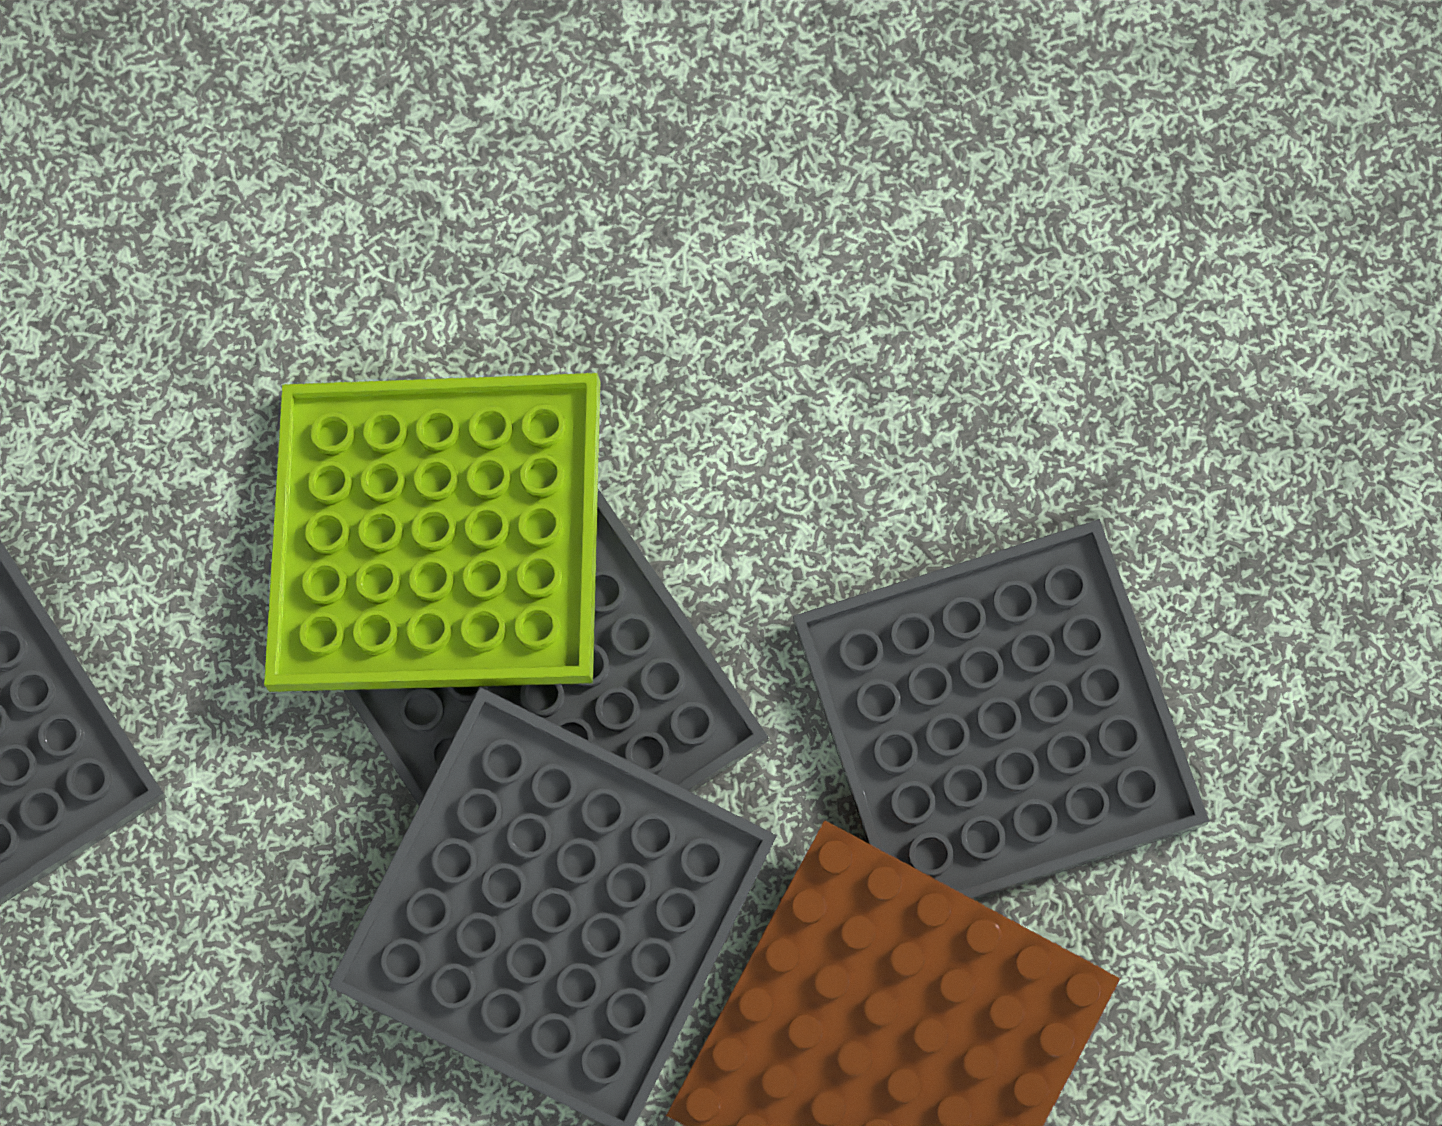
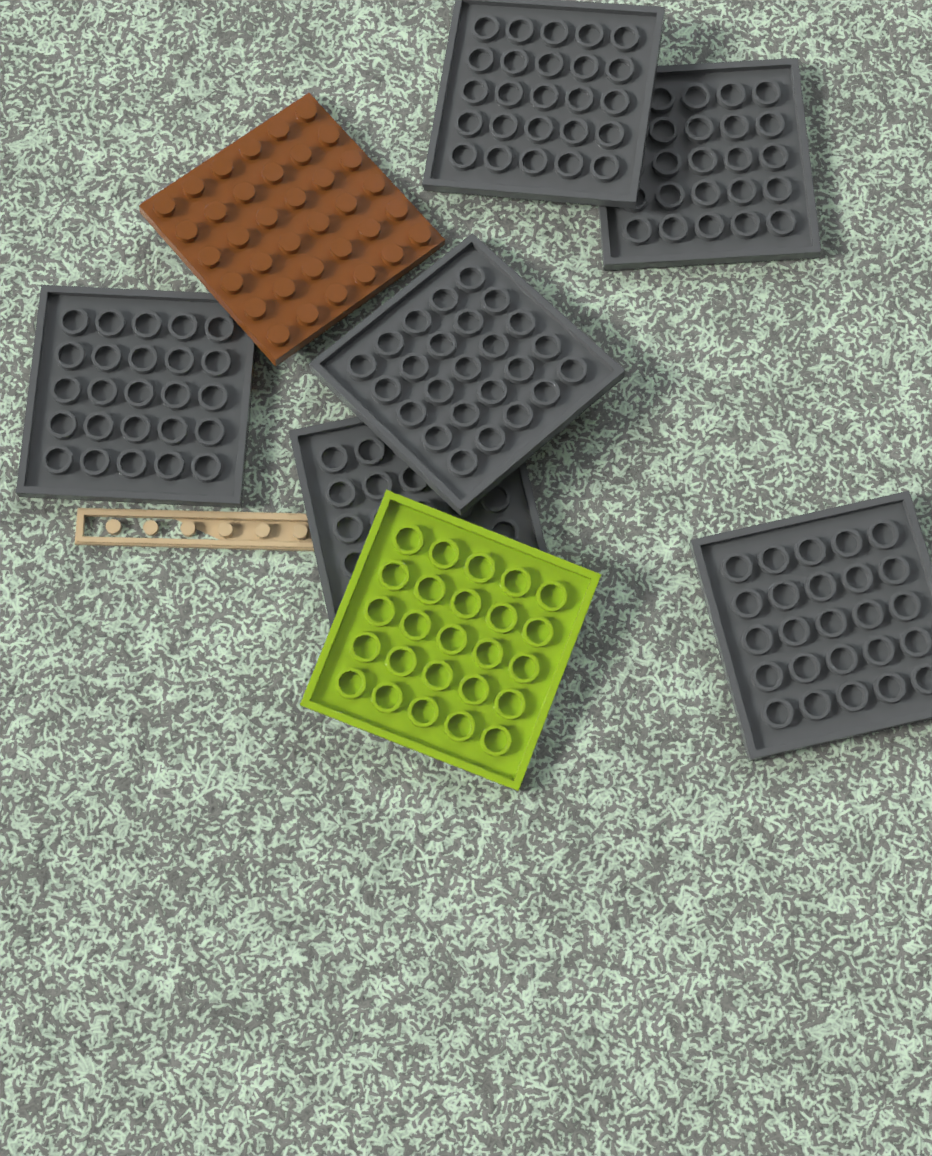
camera: 160 degrees left, 0 degrees up
(787, 591) = (232, 529): none -> tan tile

